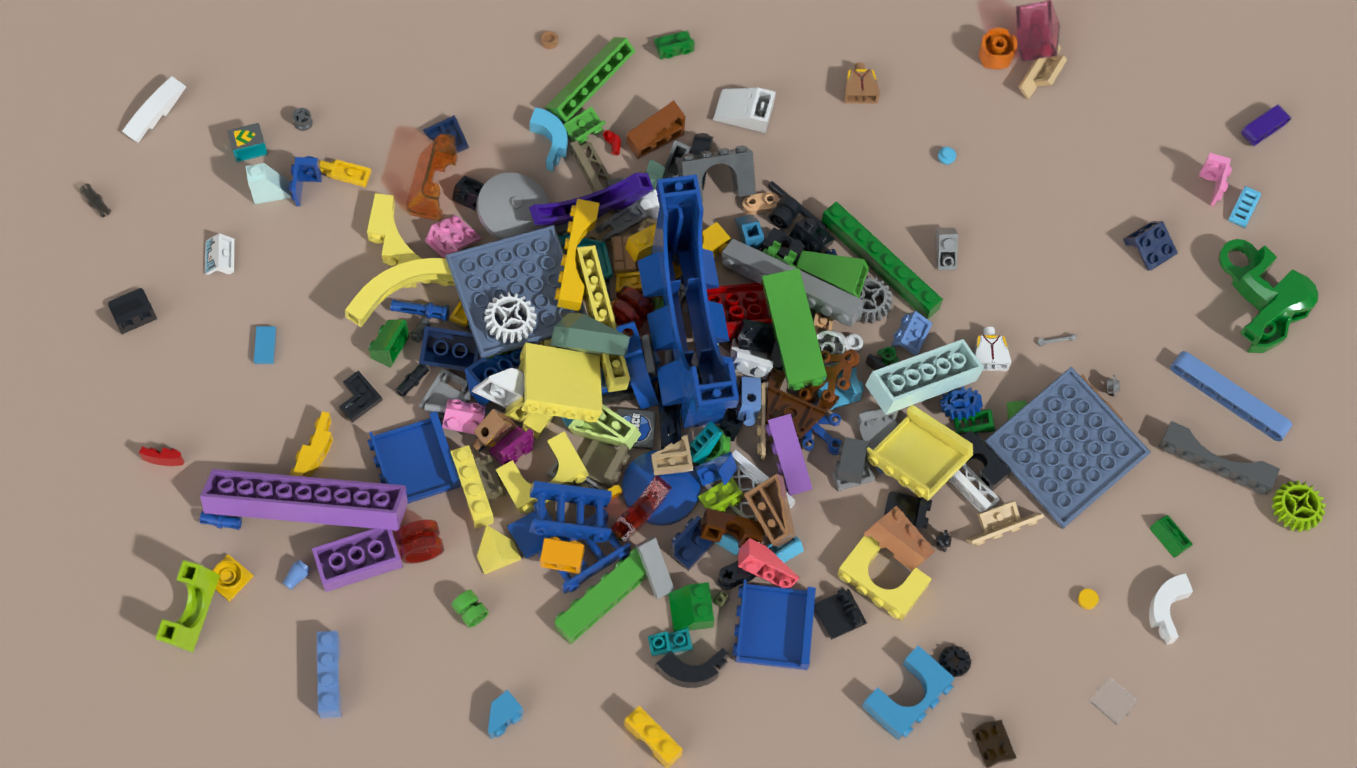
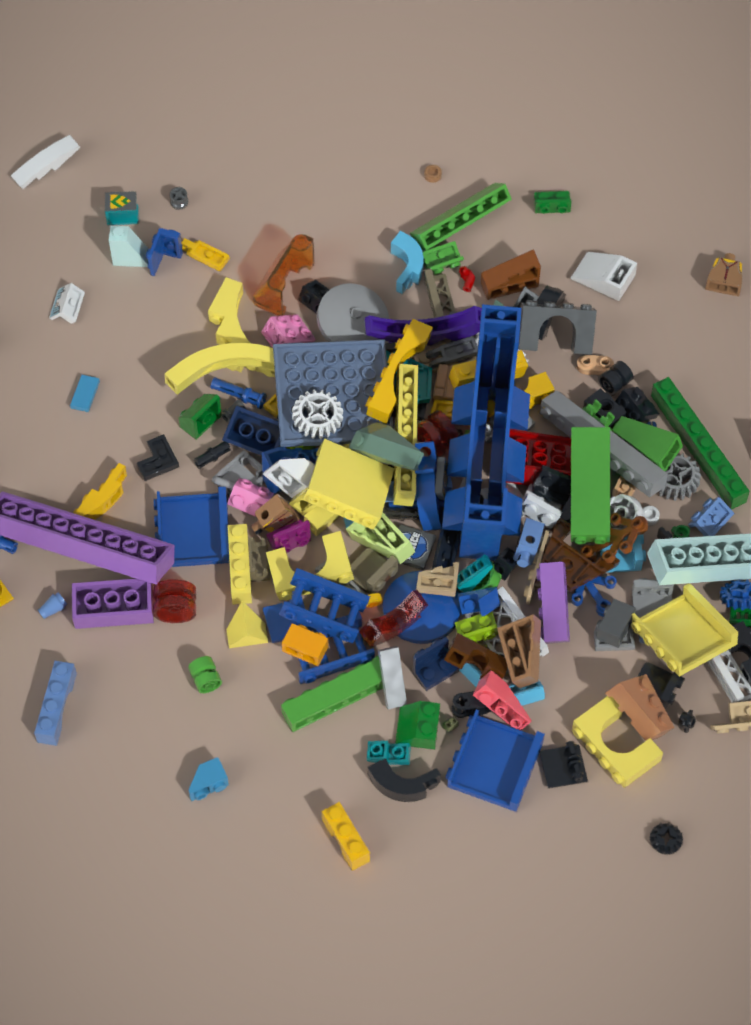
camera: 20 degrees right, 5 degrees down
(451, 127) = (317, 232): dark blue wing -> none
(750, 231) = (576, 388): dark azure slope -> none
(778, 190) = (637, 383): black bar -> none
(898, 718) = (595, 879): dark azure arch -> none
(993, 743) = (683, 926): dark brown bracket -> none

